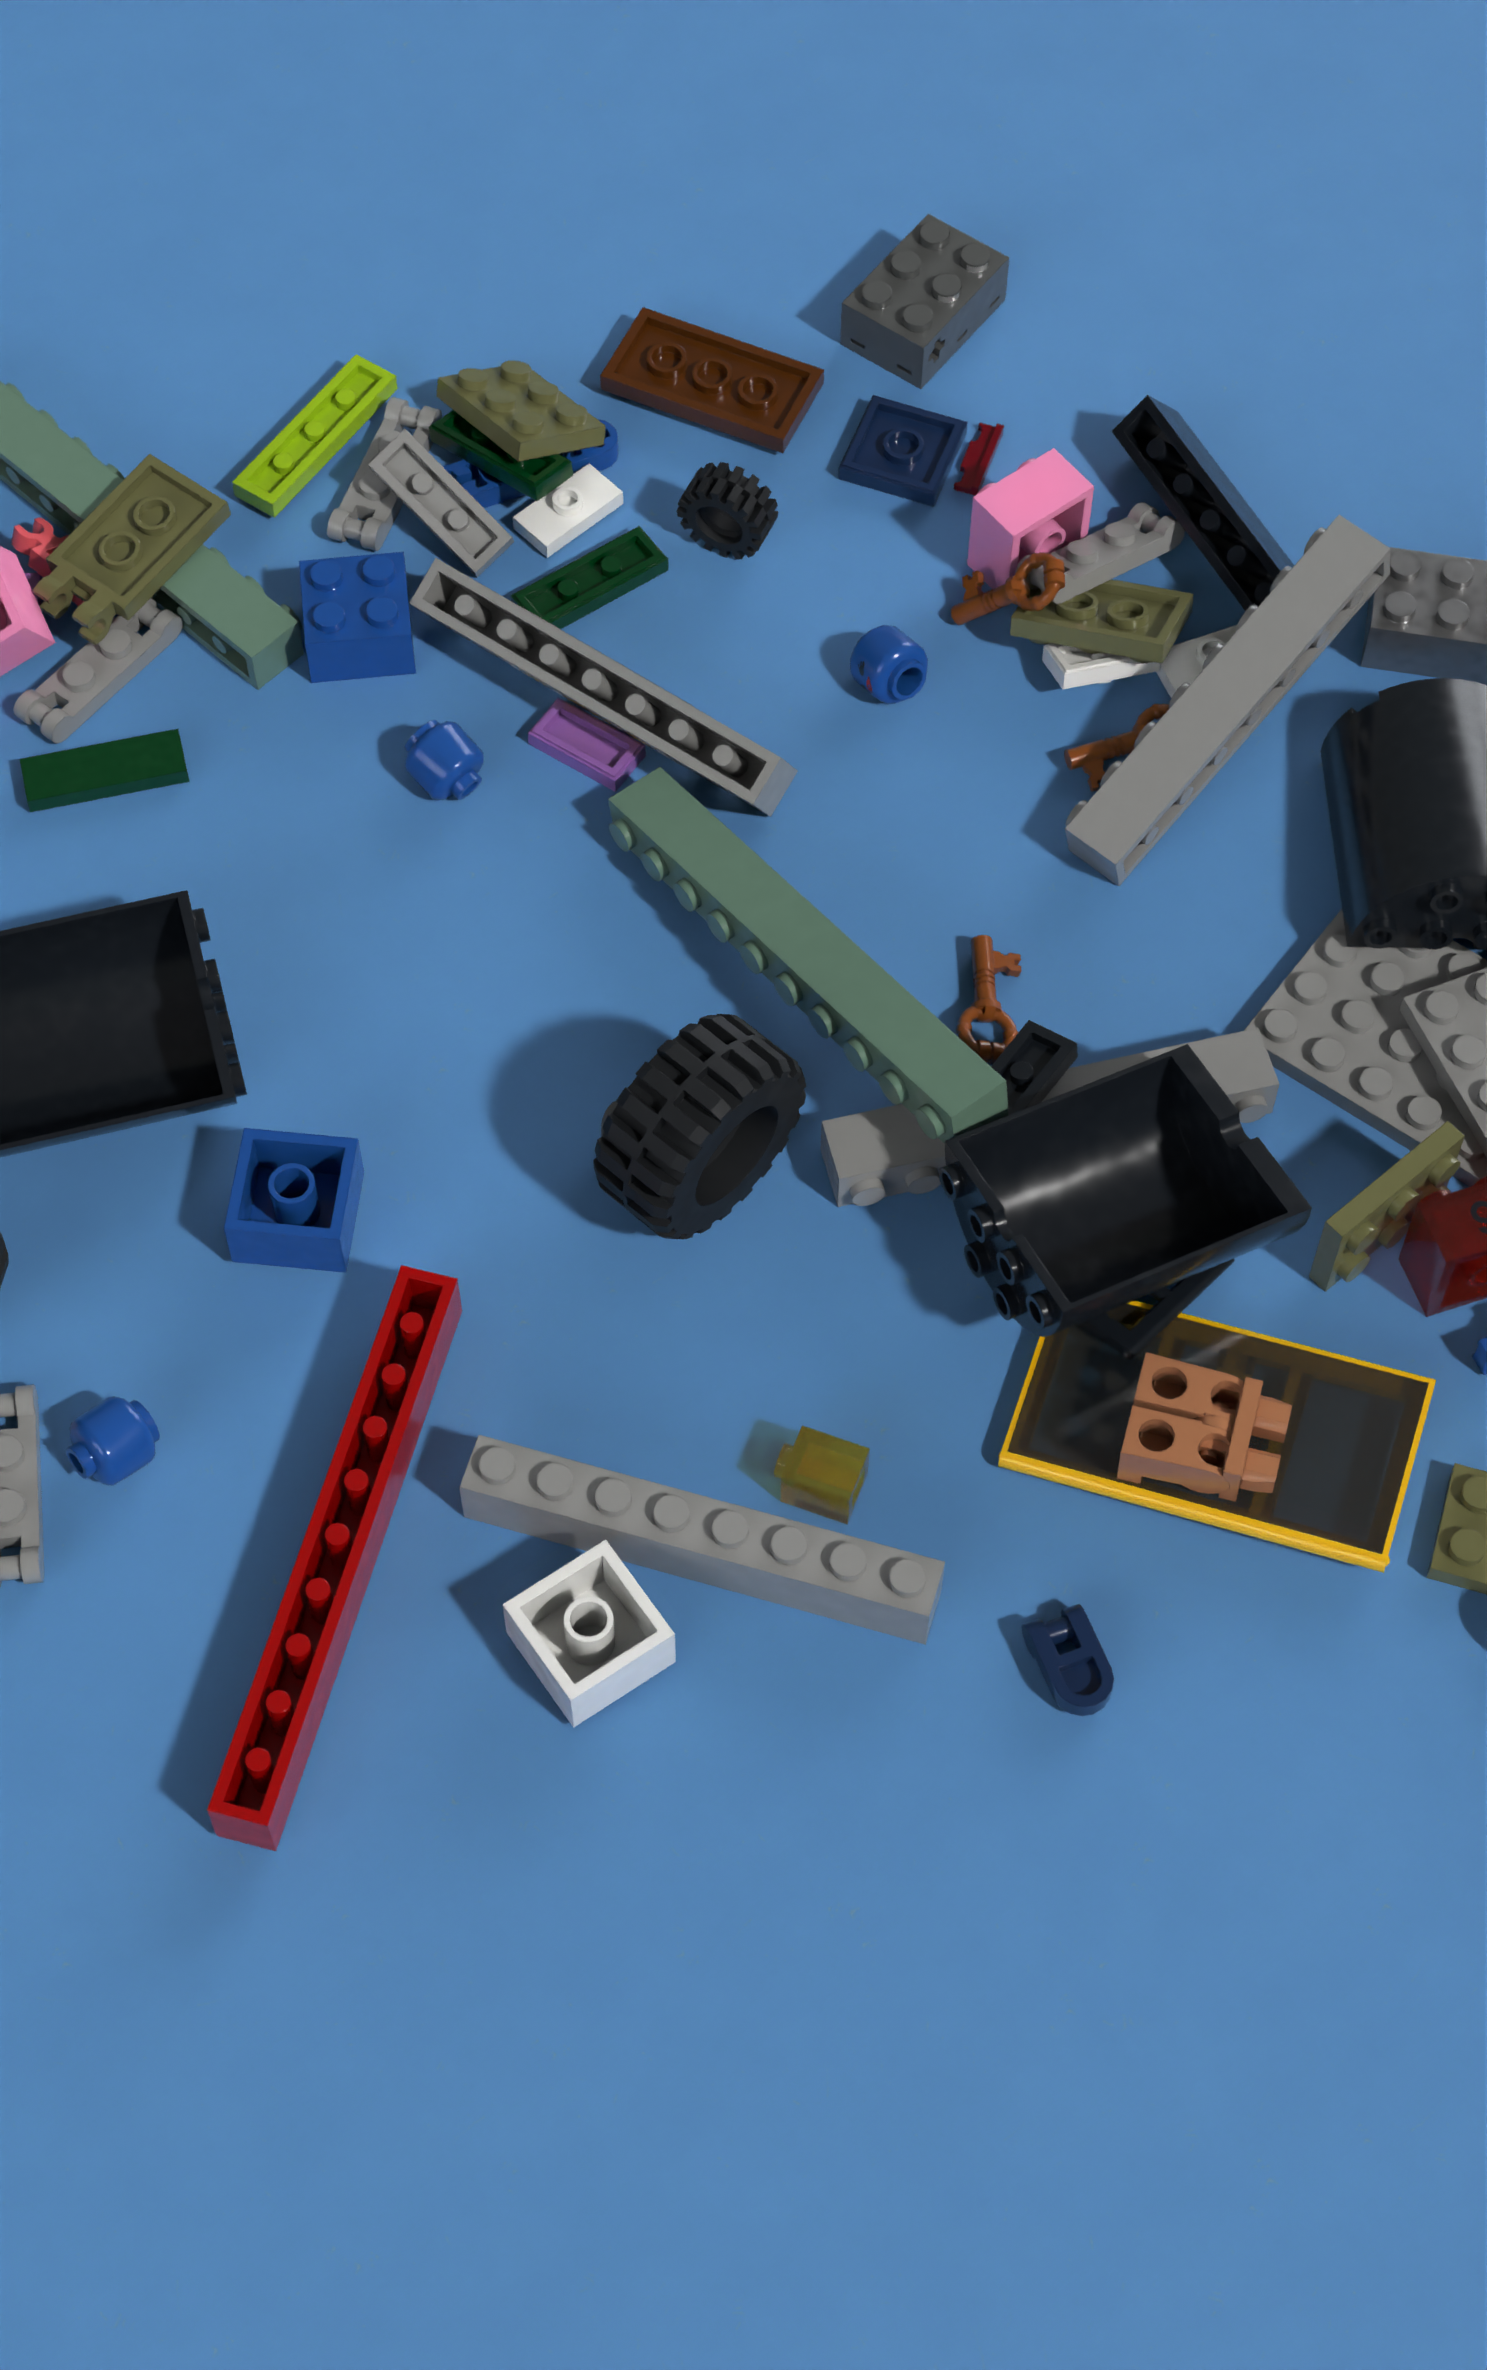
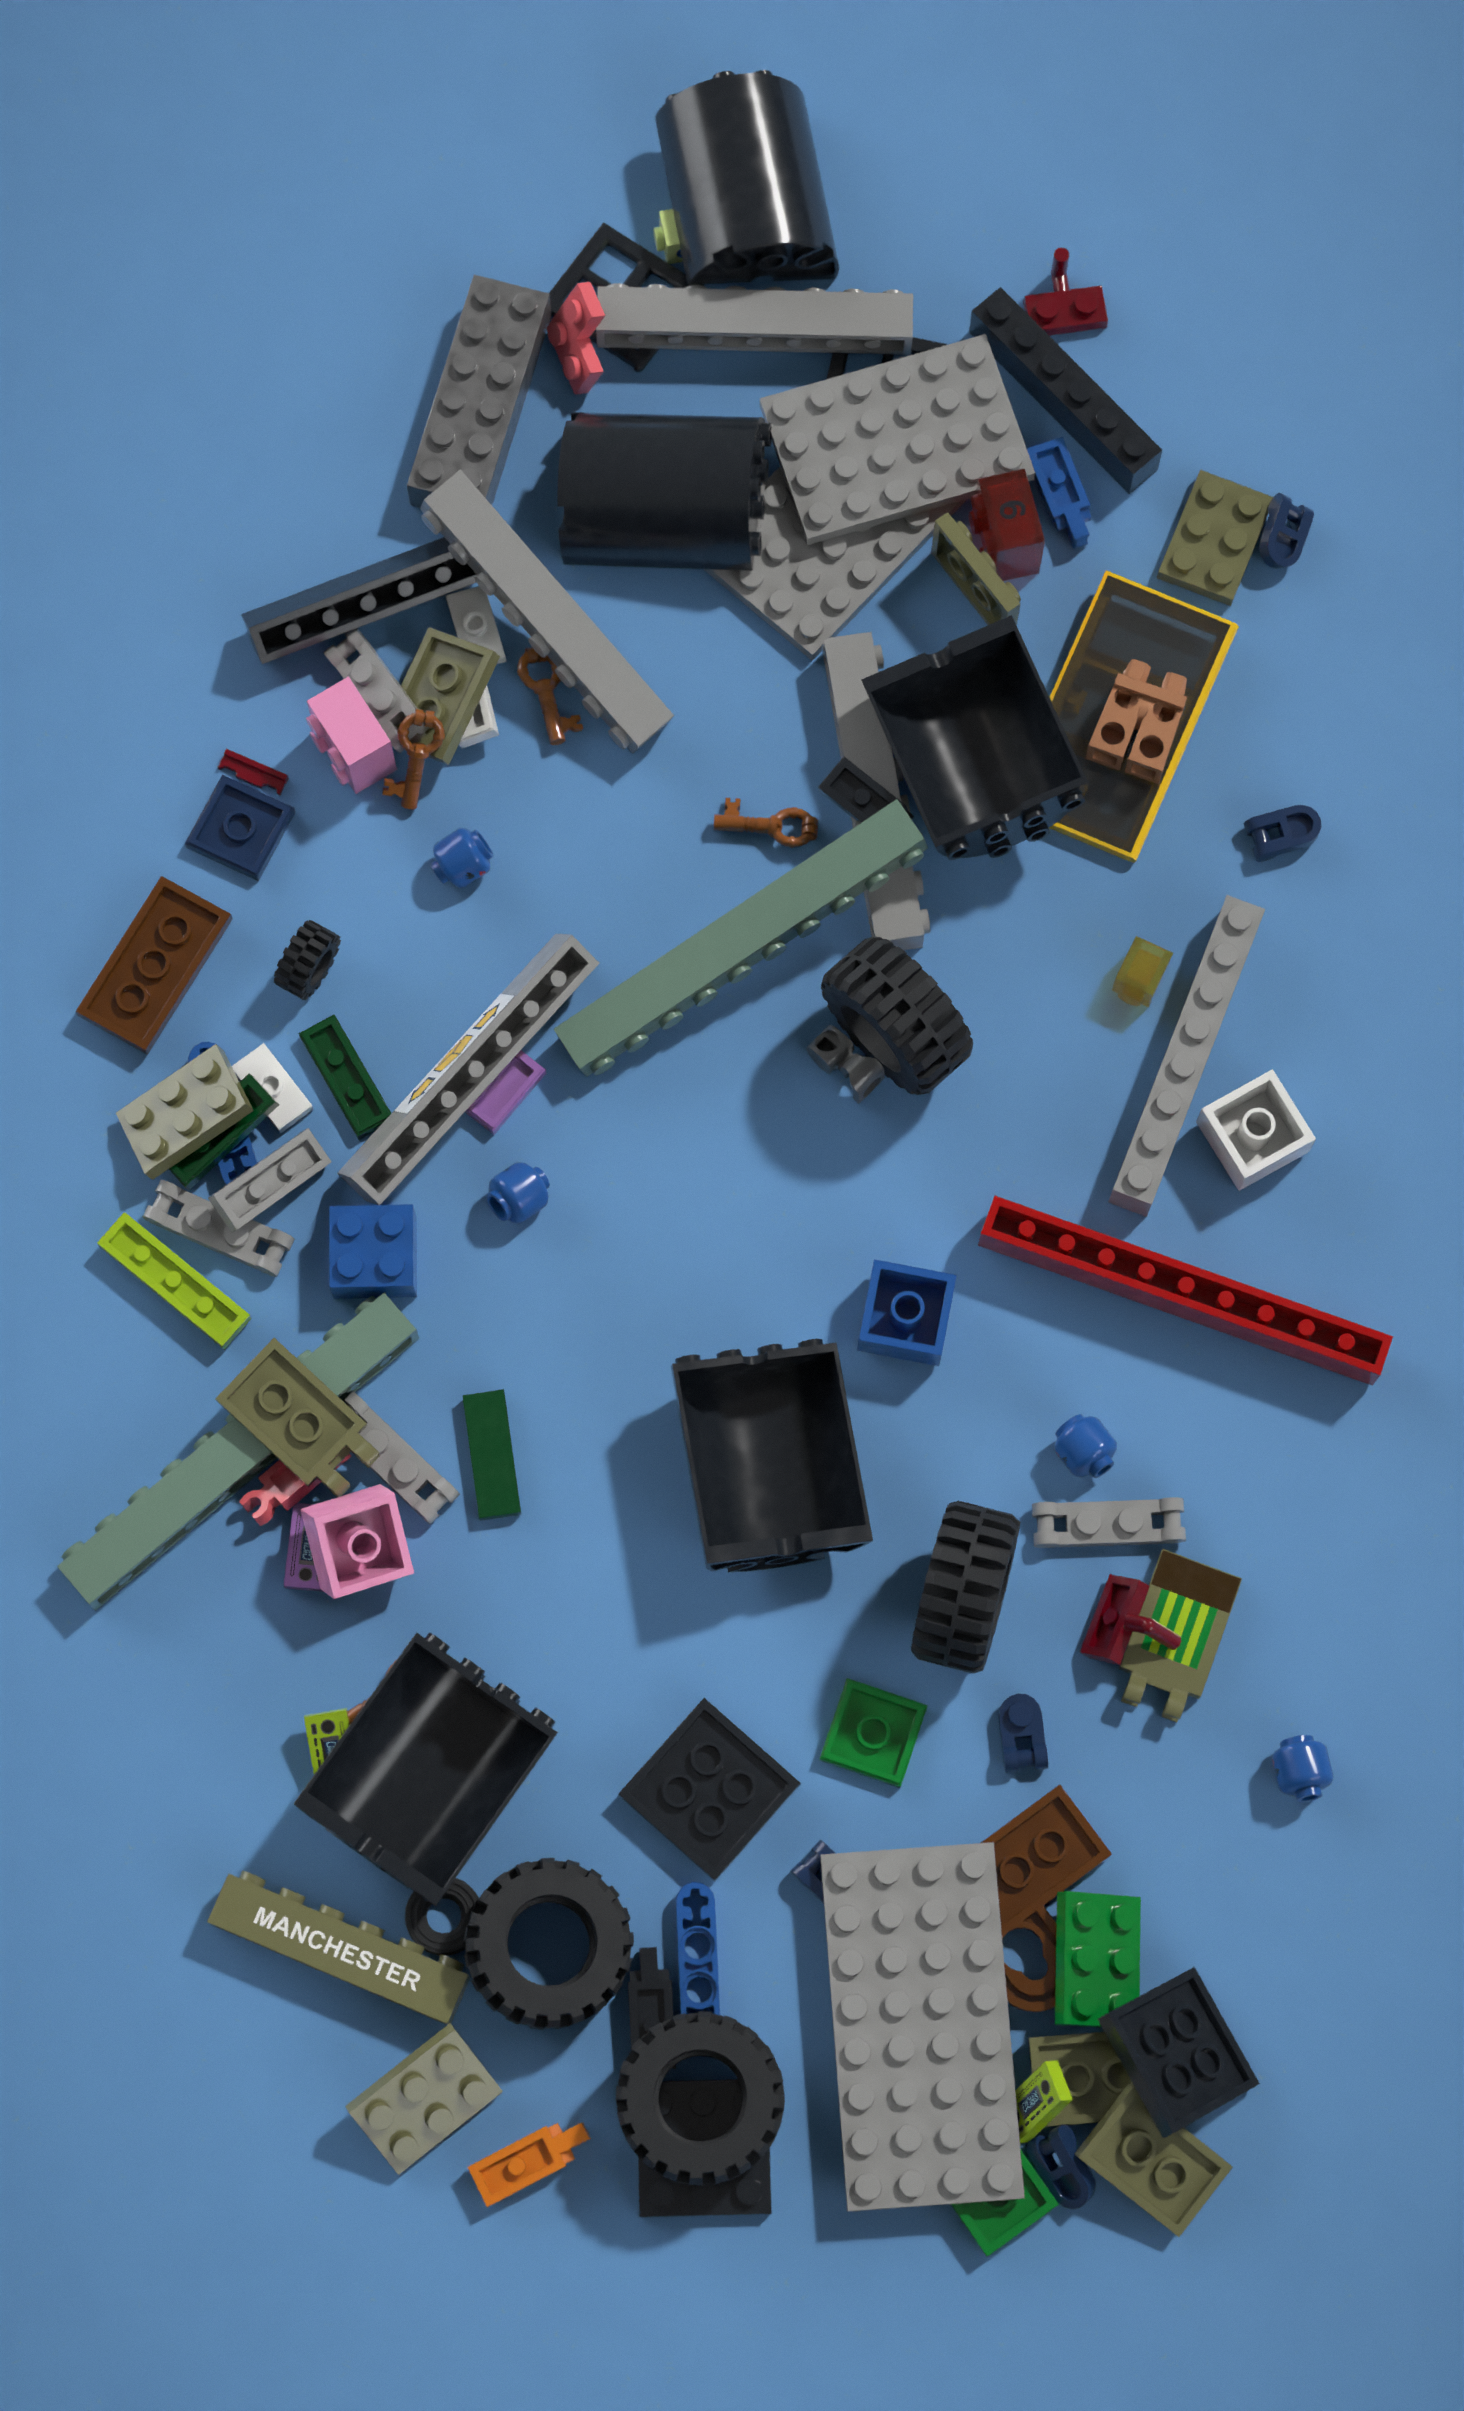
camera: 85 degrees left, 15 degrees up
(924, 301) = (98, 790): dark grey piece -> none

